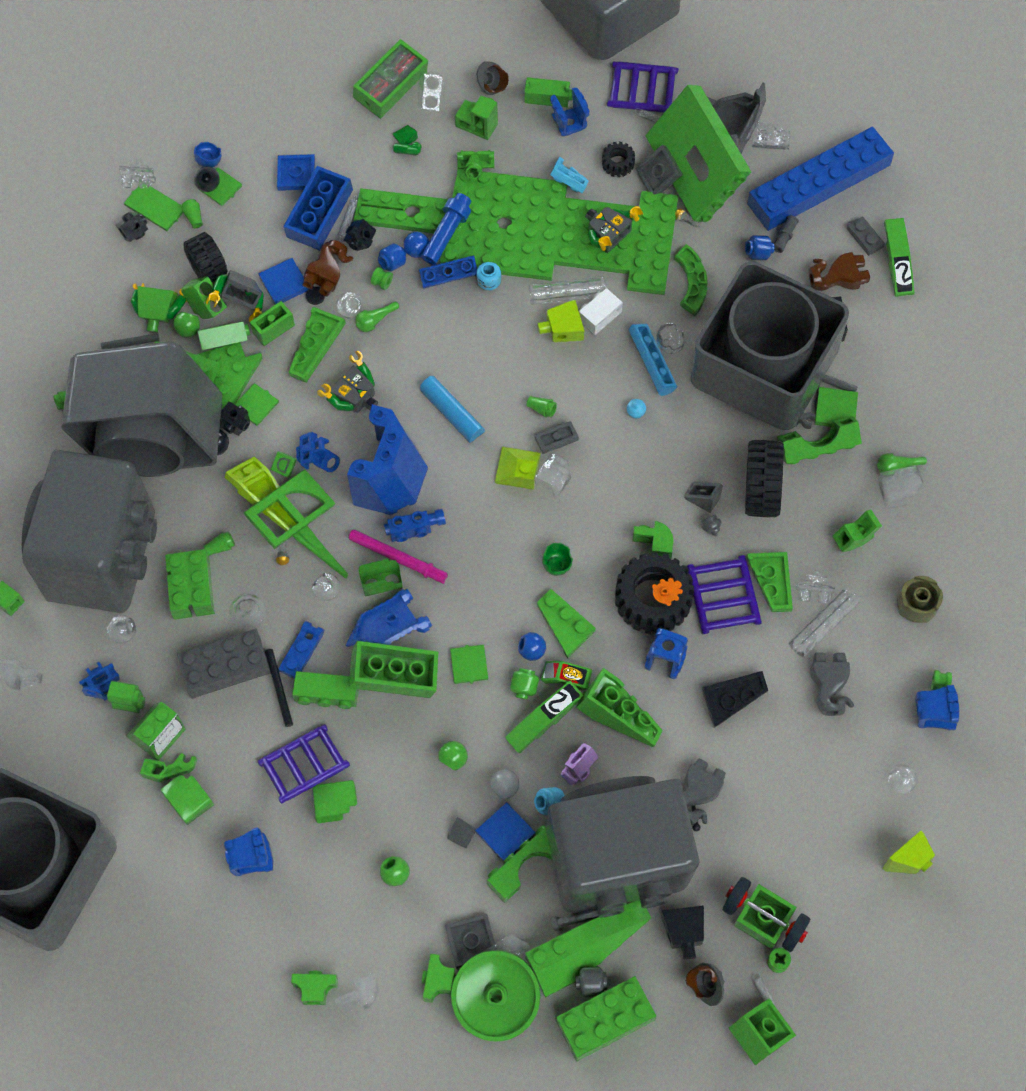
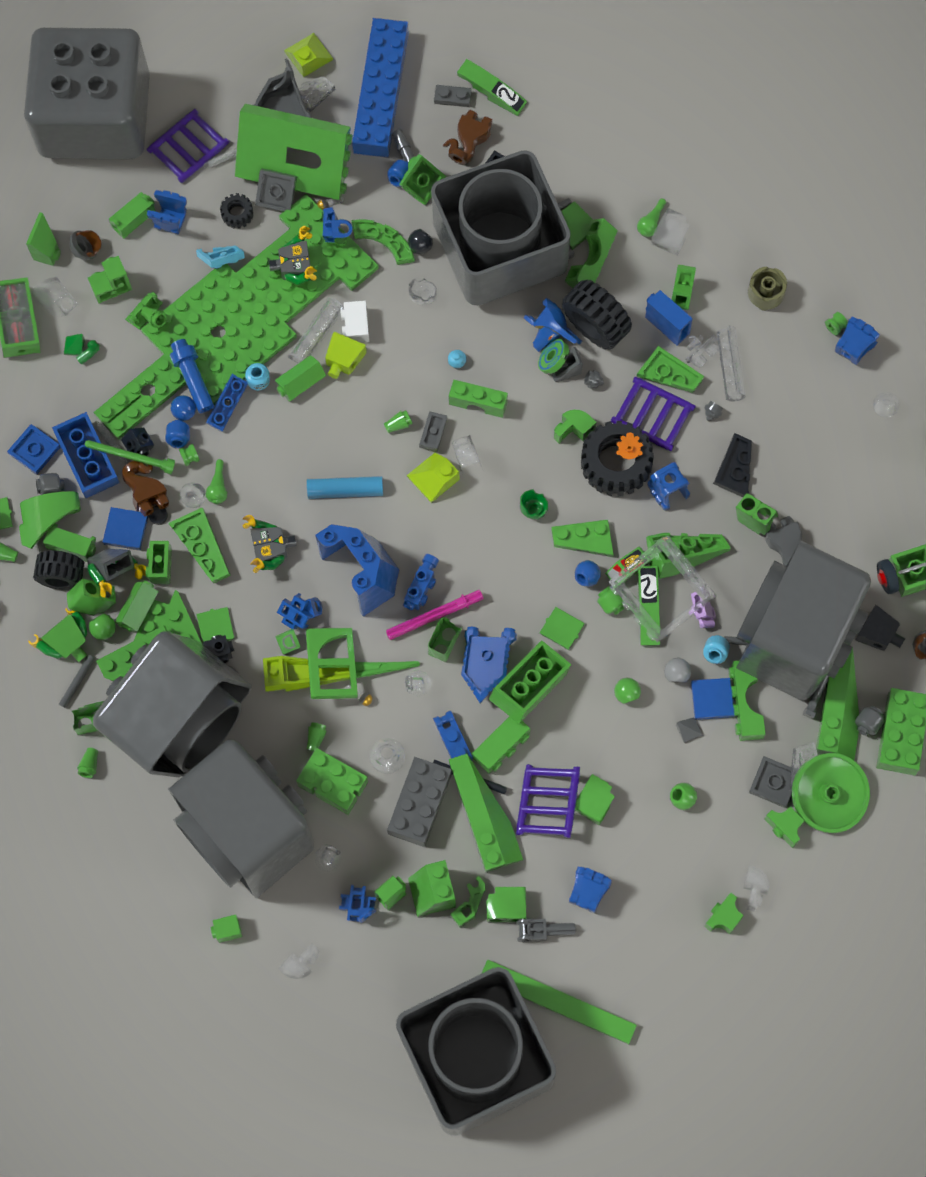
camera: 50 degrees left, 5 degrees up
(135, 906) = (570, 1006): none -> bright green tile
(186, 841) = (538, 929): none -> dark grey connector
(237, 251) = (66, 541): none -> bright green brick
(248, 726) = (487, 820): none -> bright green wedge
(249, 214) = (43, 512): none -> bright green panel
(273, 203) = (49, 483): none -> dark grey head
(359, 269) = (165, 465): none -> bright green piece
(469, 49) = (42, 242): none -> bright green slope
(514, 306) = (300, 378): none -> bright green brick
(591, 718) = (631, 603): none -> clear windscreen
(619, 457) = (491, 400): none -> bright green arch
(652, 359) = (426, 316): dark azure brick -> none
(662, 229) = (331, 226): none -> blue piece
(700, 476) = (553, 356): none -> bright green tile
(700, 729) = (754, 522): none -> bright green piece
(709, 302) = (420, 241): none -> black piece
(727, 455) = (551, 326): none -> blue piece
(769, 256) = (420, 178): none -> bright green slope
(769, 639) = (712, 410): none -> dark grey plate
(800, 110) = (308, 55): none -> lime slope
(818, 539) = (668, 317): none -> blue brick
(830, 680) = (777, 394): dark grey hips -> none

